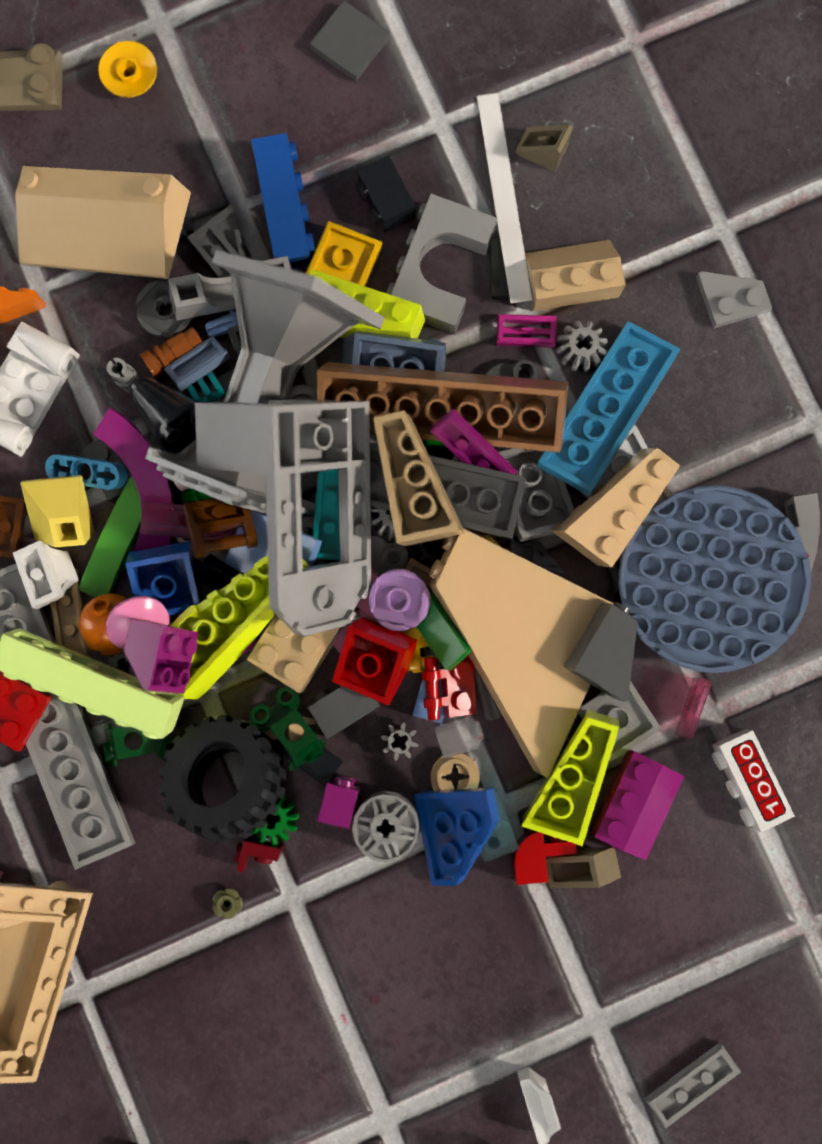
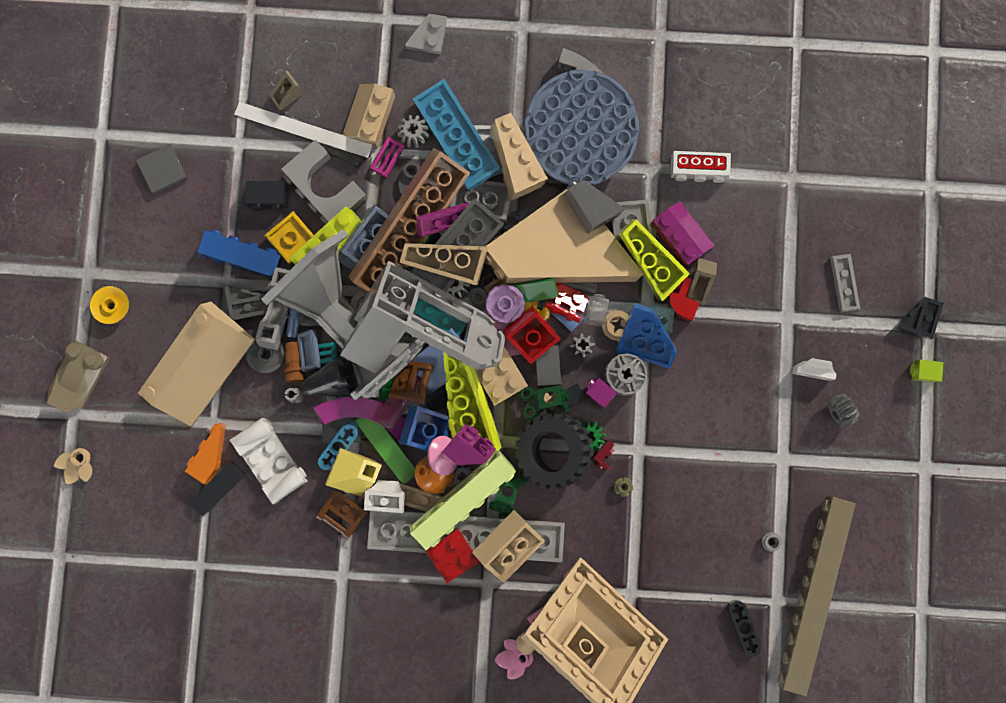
camera: 65 degrees left, 0 degrees up
(56, 781) = (508, 546): none -> tan slope
(693, 708) = (645, 176): clear pink tile -> none

